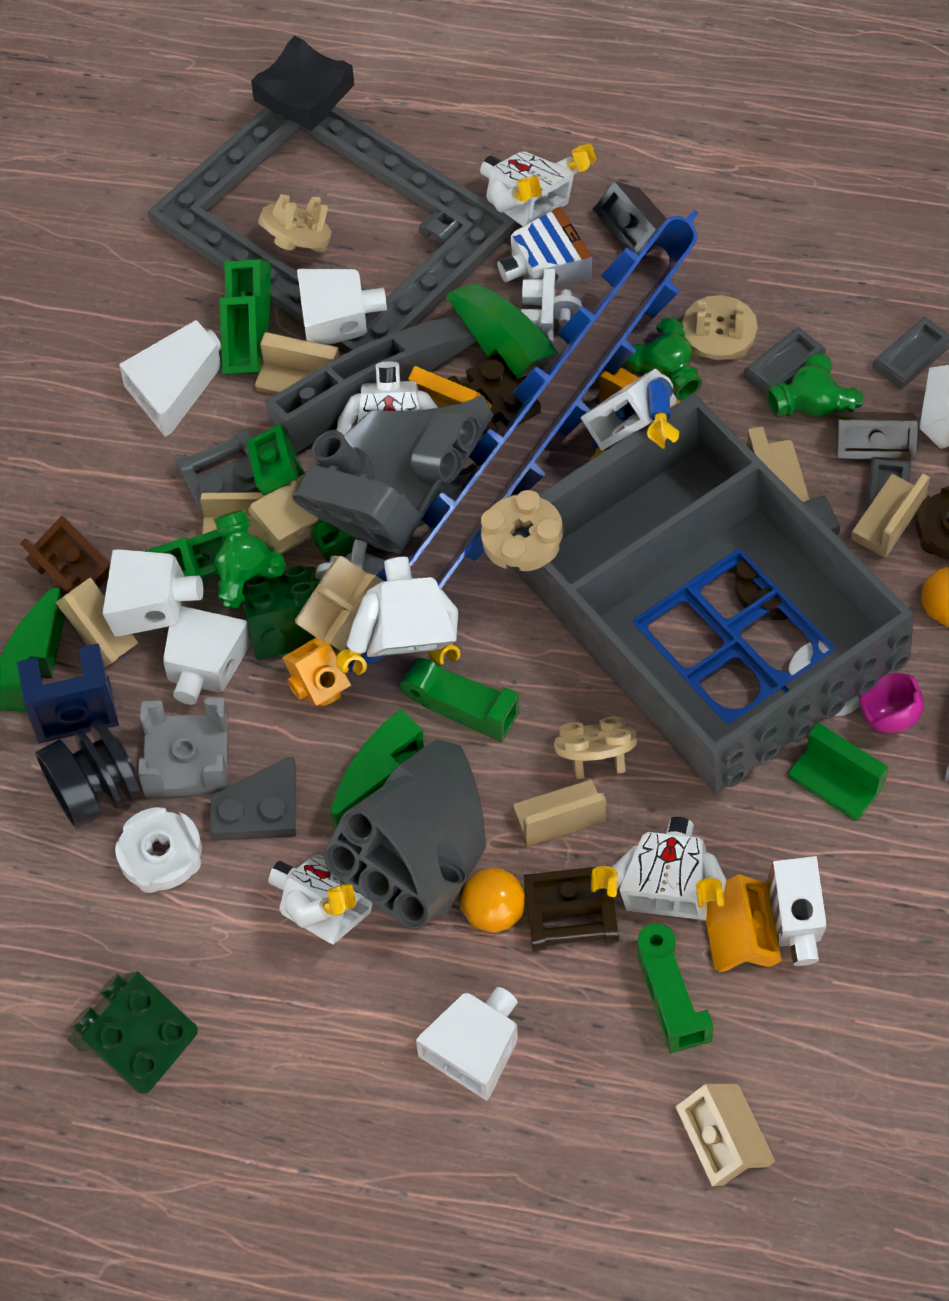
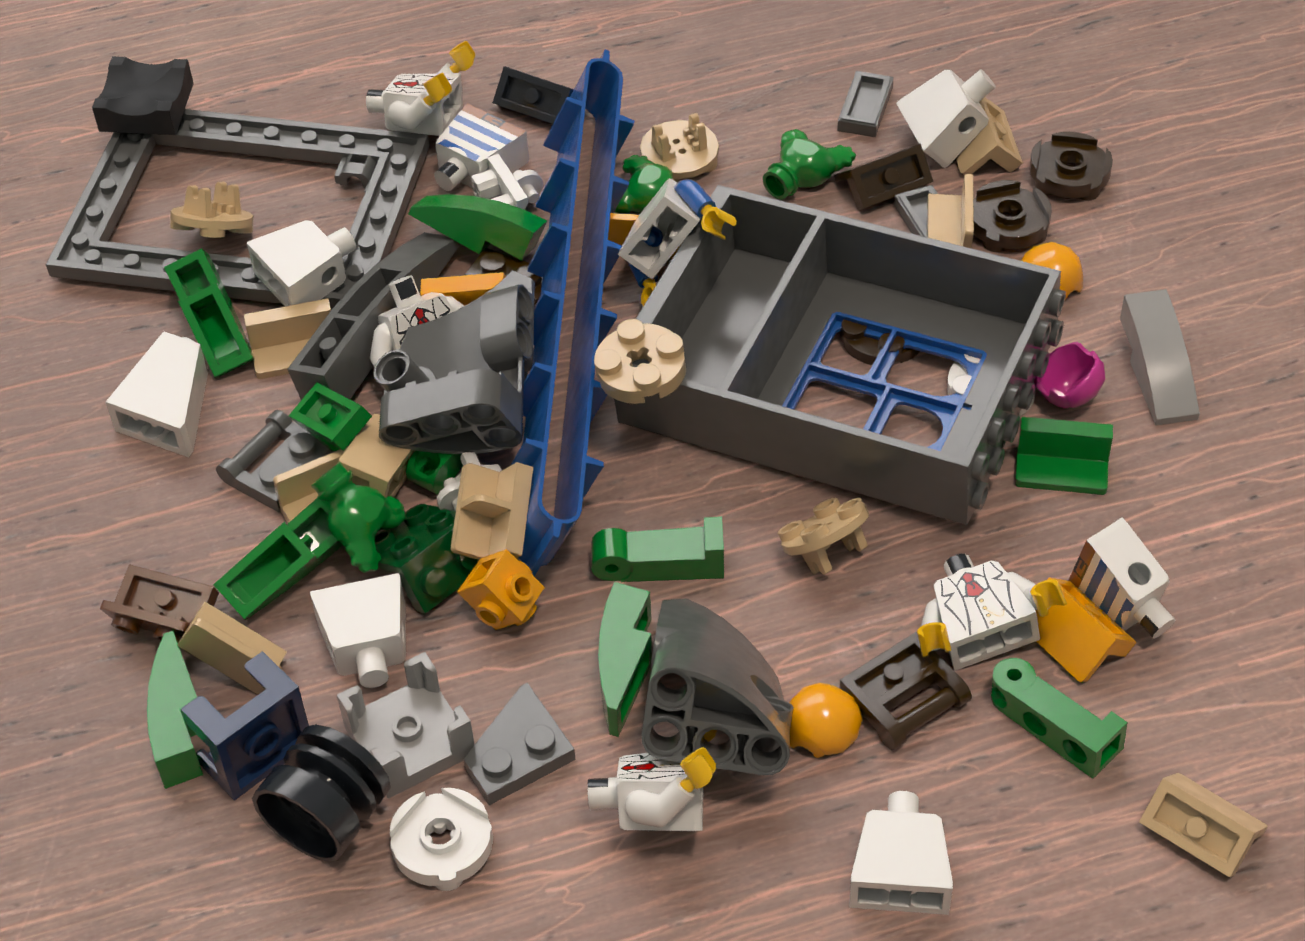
camera: 30 degrees left, 10 degrees down
(146, 591) = (277, 587): white torso -> none
(402, 618) = (572, 488): white torso -> none
(560, 812) = (830, 610): tan panel -> none
(782, 360) = (755, 154): dark grey tile -> none

